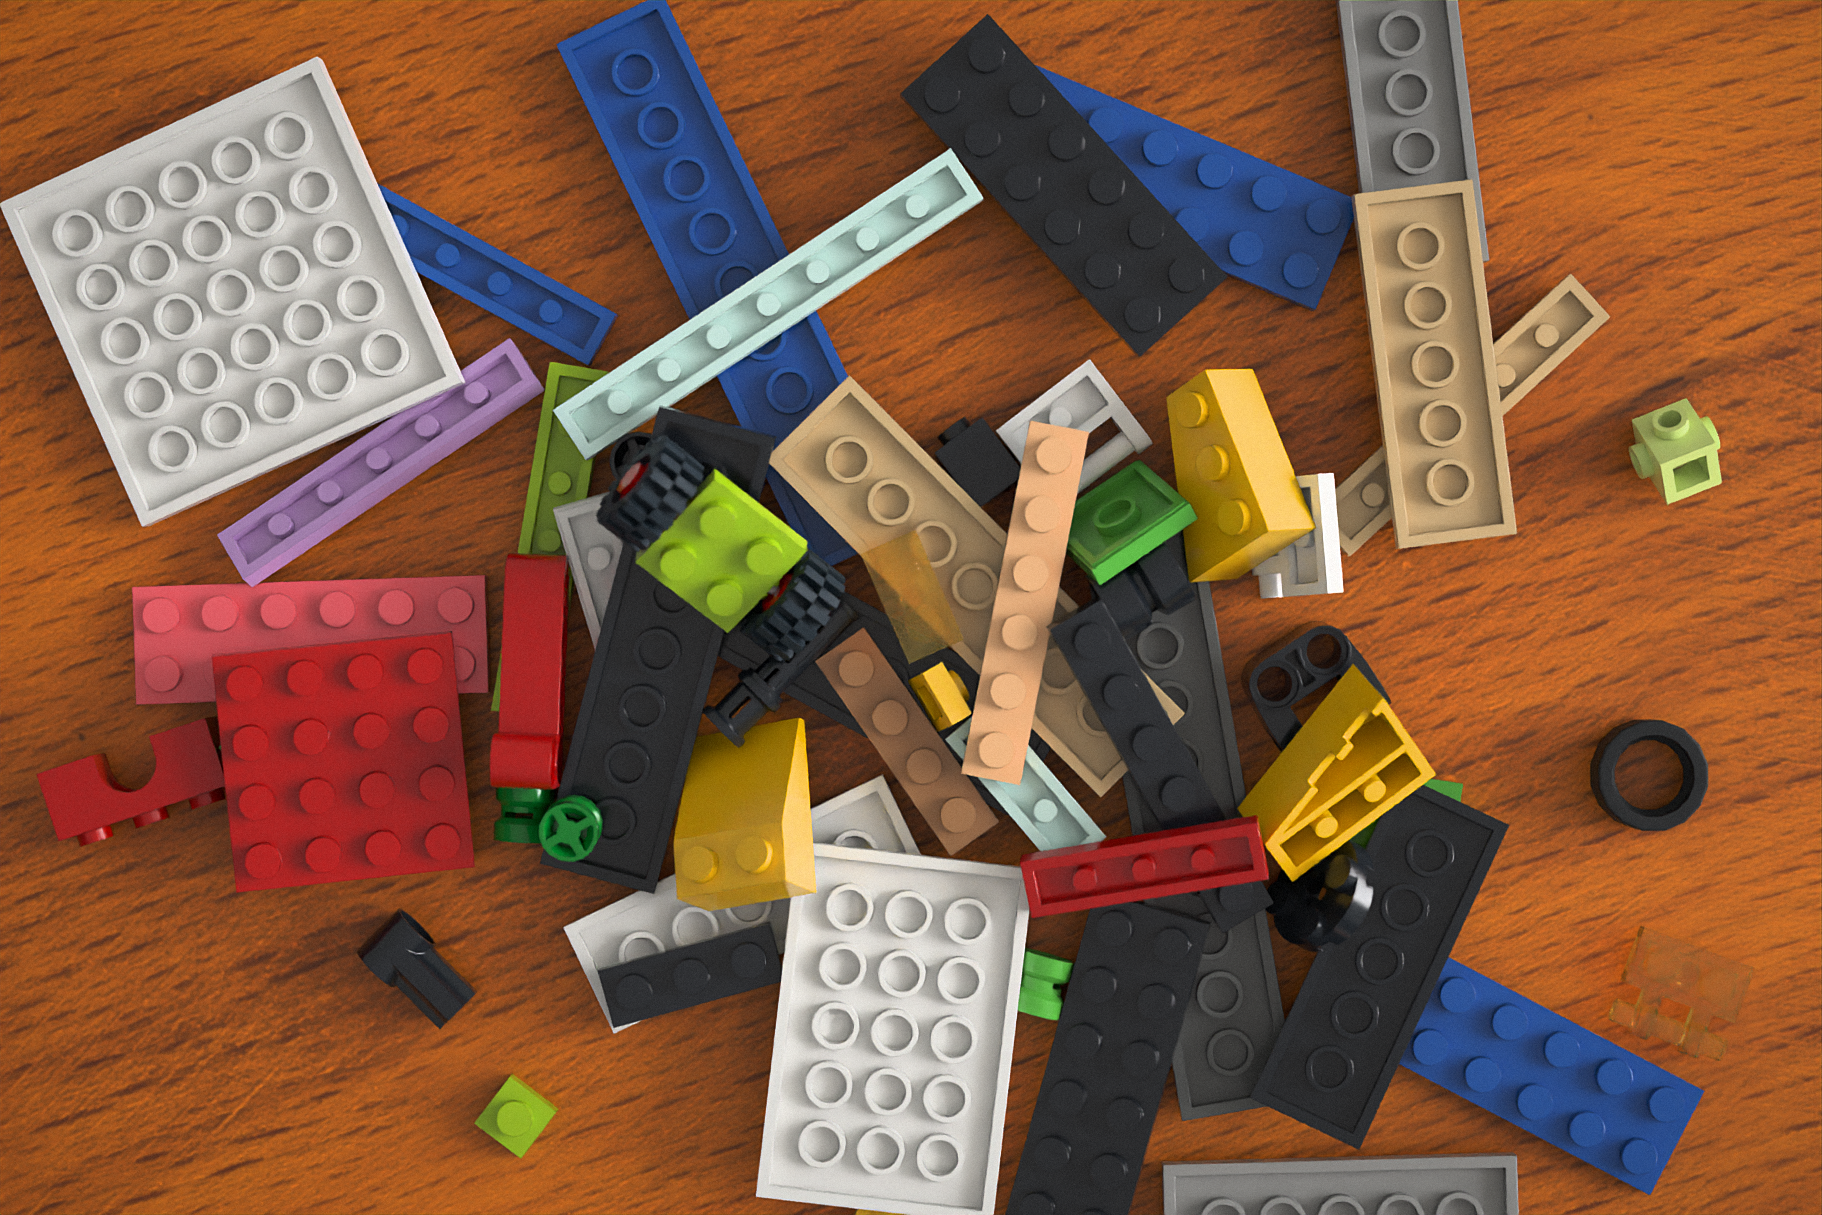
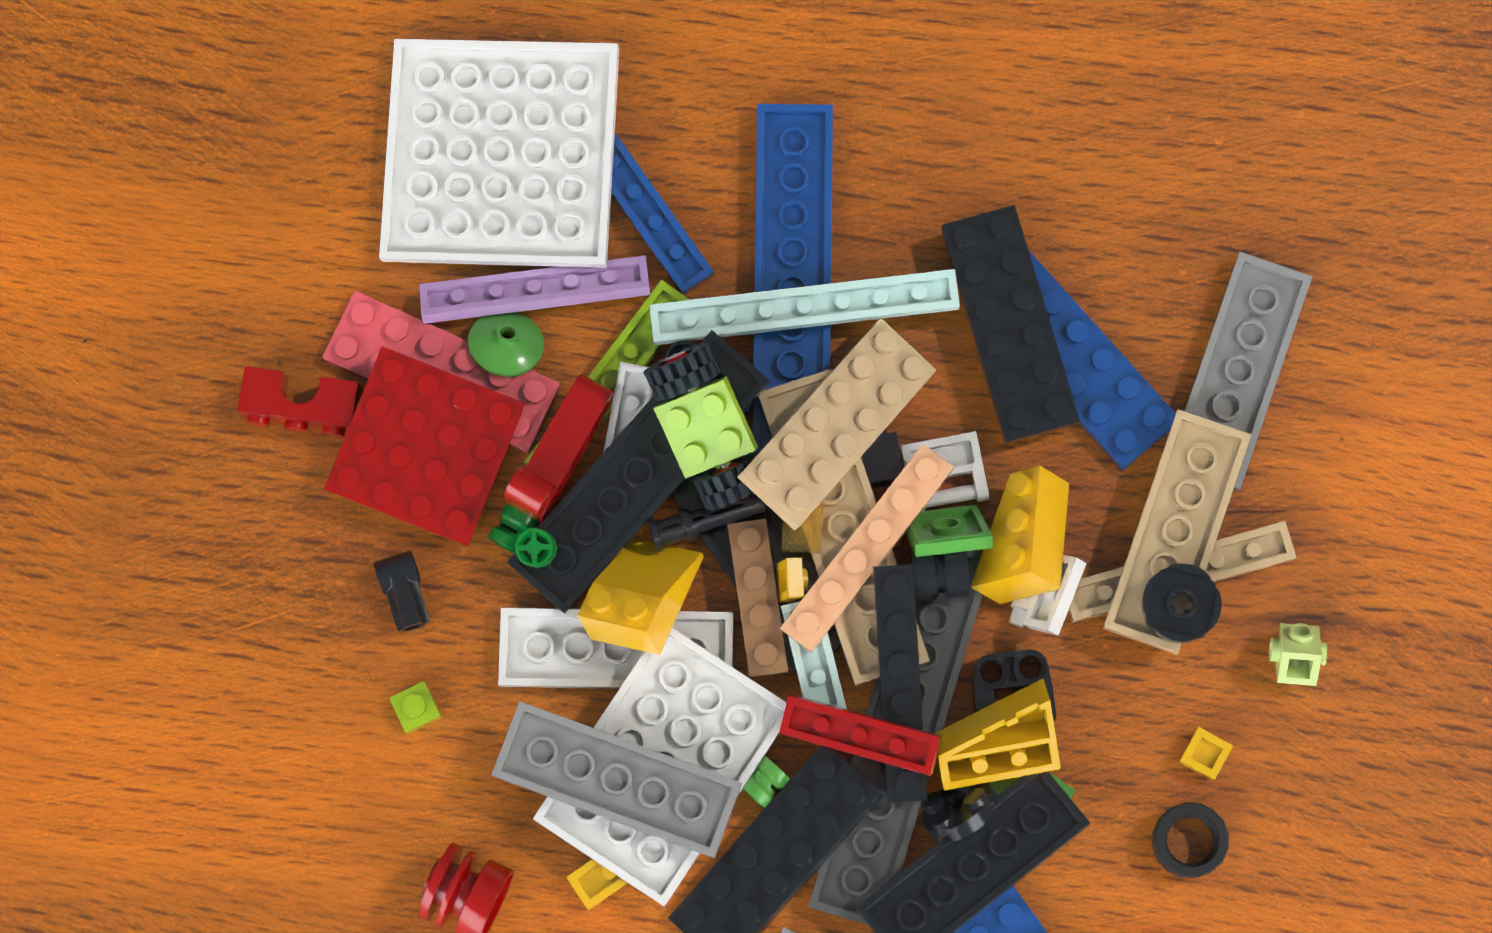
camera: 30 degrees right, 10 degrees down
(383, 580) = (502, 355): none -> bright green dish
(691, 974) = (561, 671): black plate -> none
(843, 1091) = (617, 779): none -> light grey plate
(898, 452) = (836, 424): none -> tan plate
(1509, 437) = (1162, 616): none -> black plate
(1614, 646) = (1205, 753): none -> yellow plate

